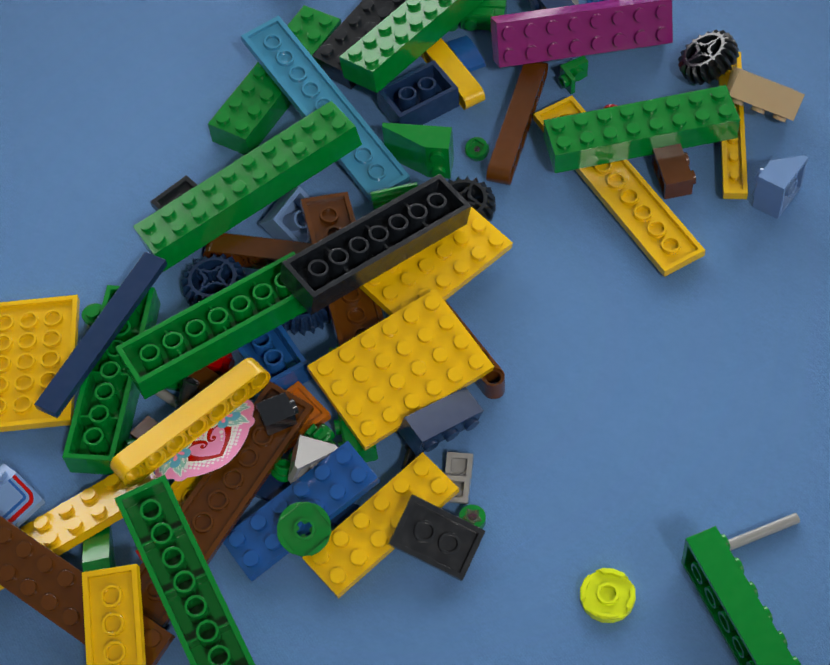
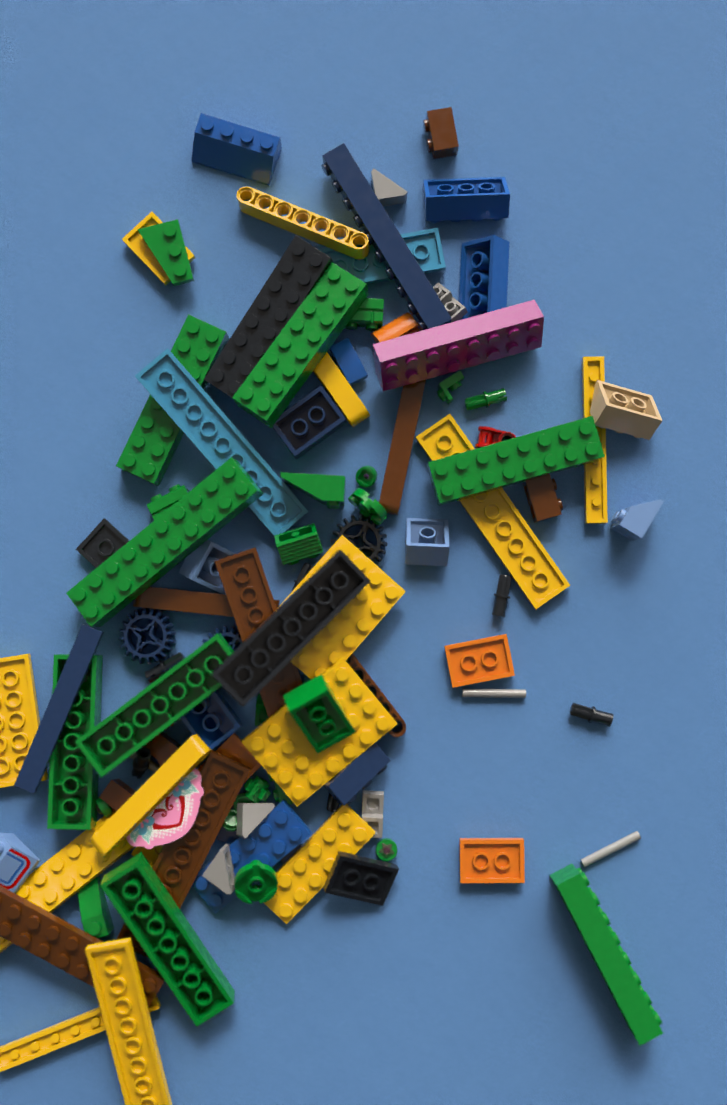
camera: 10 degrees left, 30 degrees up
(91, 313) = (44, 669): green plate -> none
(263, 509) = (221, 871): none -> light grey slope
(277, 413) = (222, 787): black brick -> none
(402, 334) = (318, 713): none -> green slope
(476, 164) = (367, 507): none -> green plate
(539, 208) = (427, 542): none -> medium blue slope
(596, 322) = (479, 660): none -> orange plate
(605, 534) = (491, 860): none -> orange plate
(607, 595) = (494, 909): neon yellow tile -> none
(611, 87) = (485, 399): none -> green axle
(613, 358) = (494, 693): none -> light grey bar
(625, 262) = (502, 595): none -> black axle
(708, 57) = (590, 363): black gear -> none
(732, 382) = (591, 714): none -> black axle

